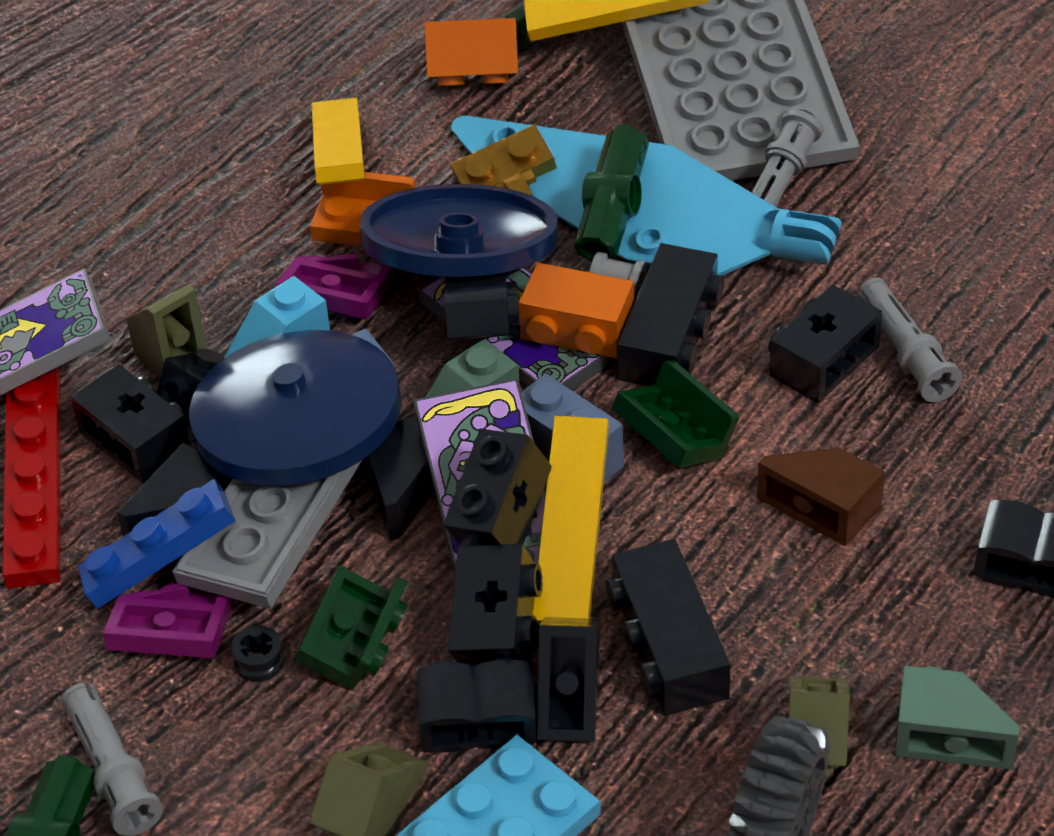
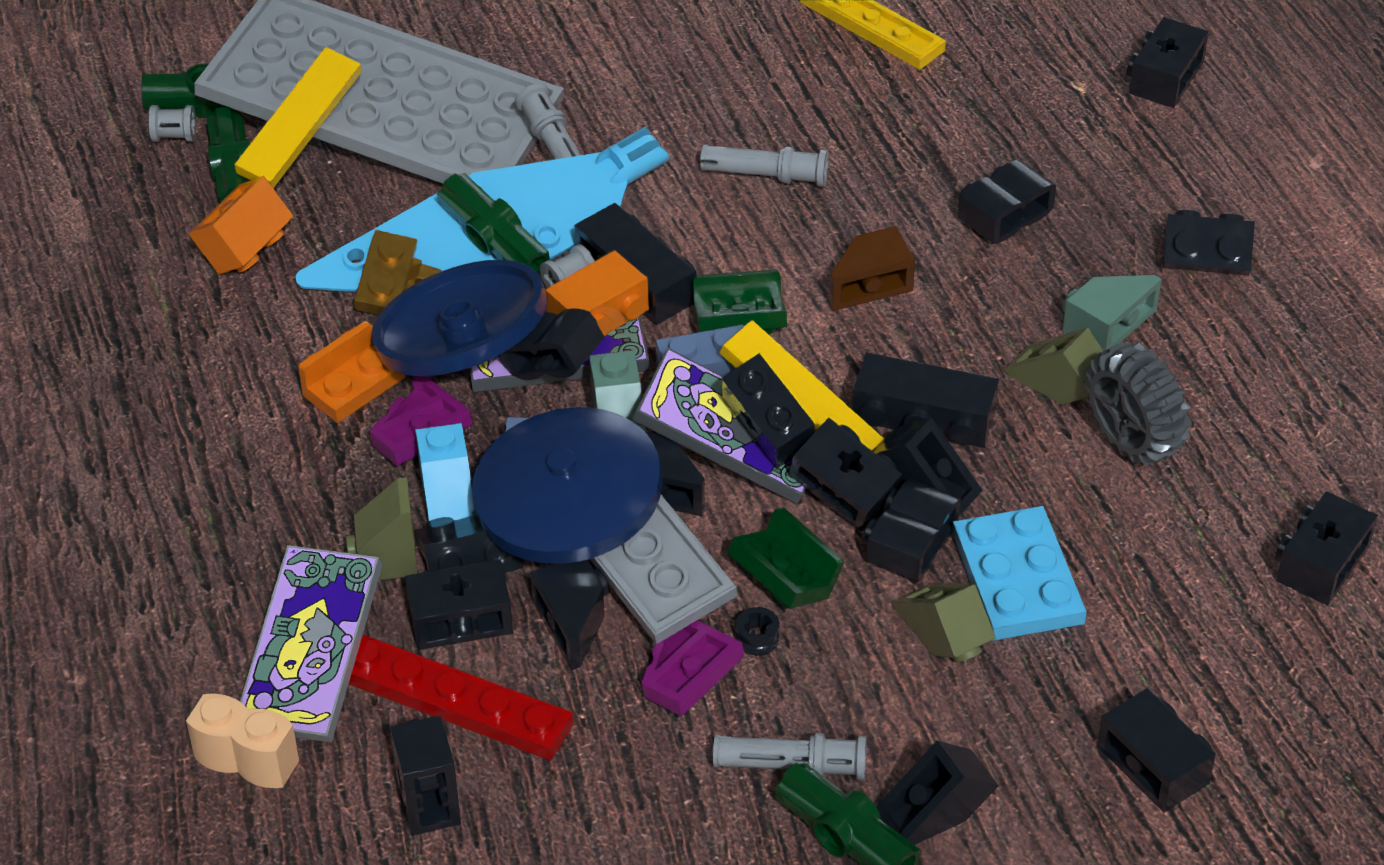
camera: 60 degrees left, 0 degrees up
(155, 543) = (617, 634): blue plate -> none
(337, 141) = (271, 344): yellow tile -> none
(824, 343) = (736, 201): black brick -> none

